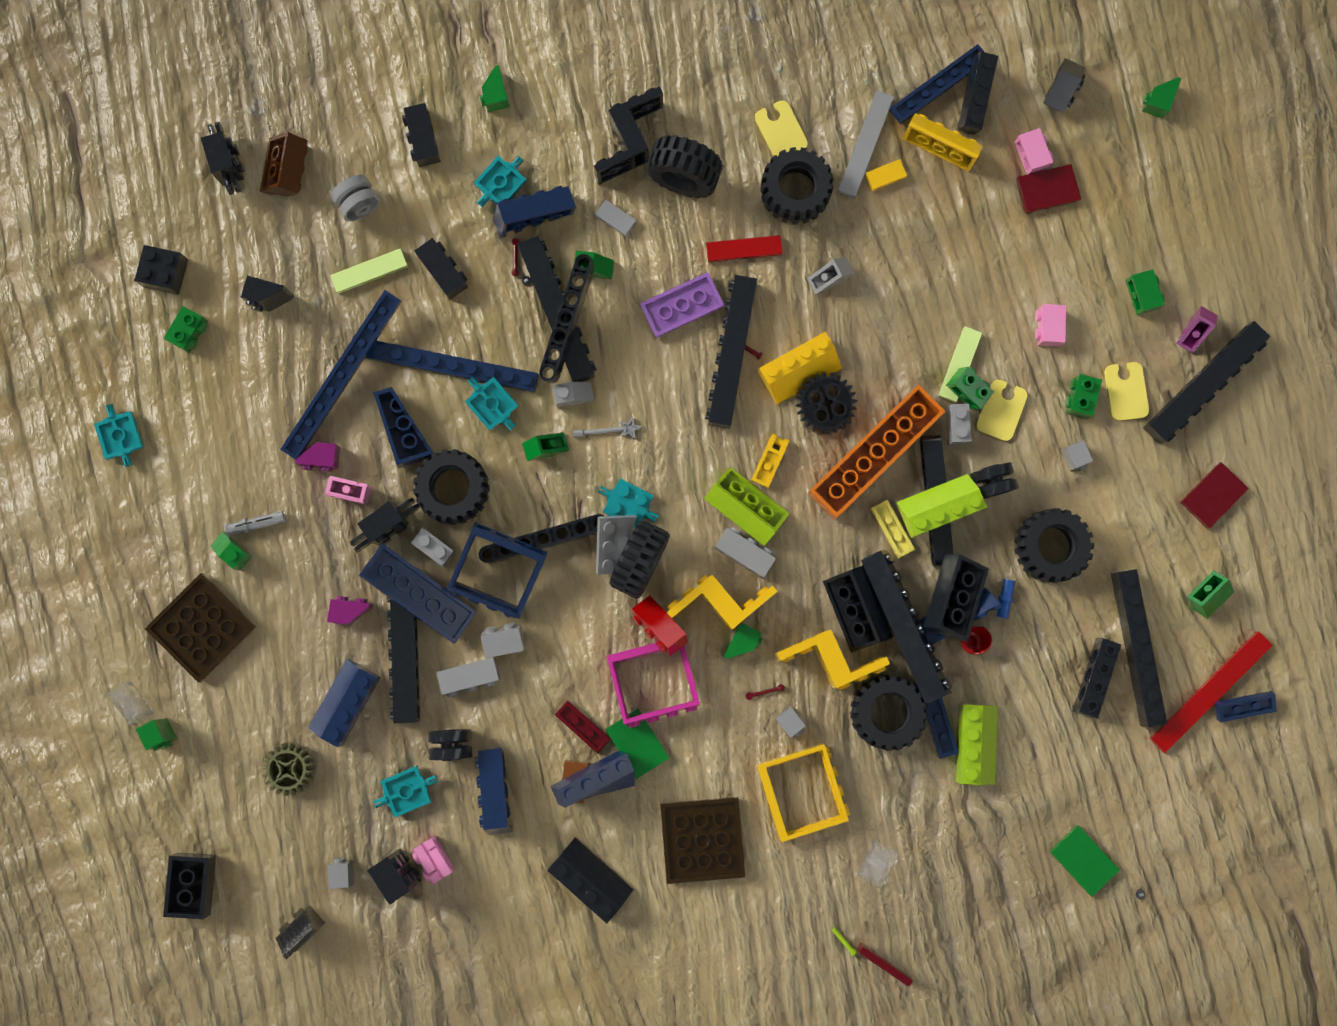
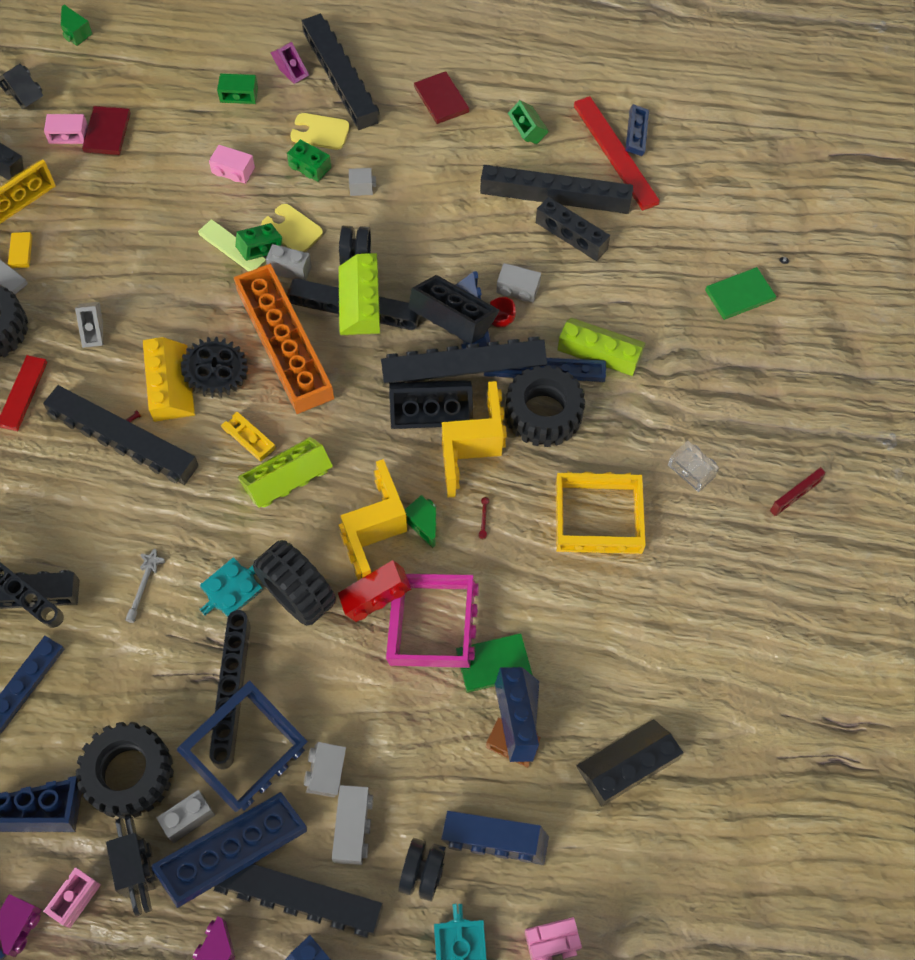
camera: 70 degrees left, 20 degrees down
(491, 403) = (52, 695): teal plate -> none
(545, 446) = (128, 654): green slope -> none
(572, 393) = (84, 607): light grey slope -> none
(582, 726) = (455, 716): dark red tile -> none
(611, 539) = (264, 614): light grey wing -> none
(682, 305) = (47, 467): medium lavender plate -> none
(702, 840) = (620, 628): dark brown plate -> none
(745, 552) = (332, 488): light grey brick -> none
(790, 722) = (524, 501): light grey brick -> none
(844, 941) = (777, 519): lime piece -> none
(892, 529) = (364, 351): light yellow tile -> none
(1006, 598) = (461, 272): blue pin -> none
(1015, 645) = (518, 282): none -> light grey brick
(1076, 535) = (436, 241): black tyre -> none

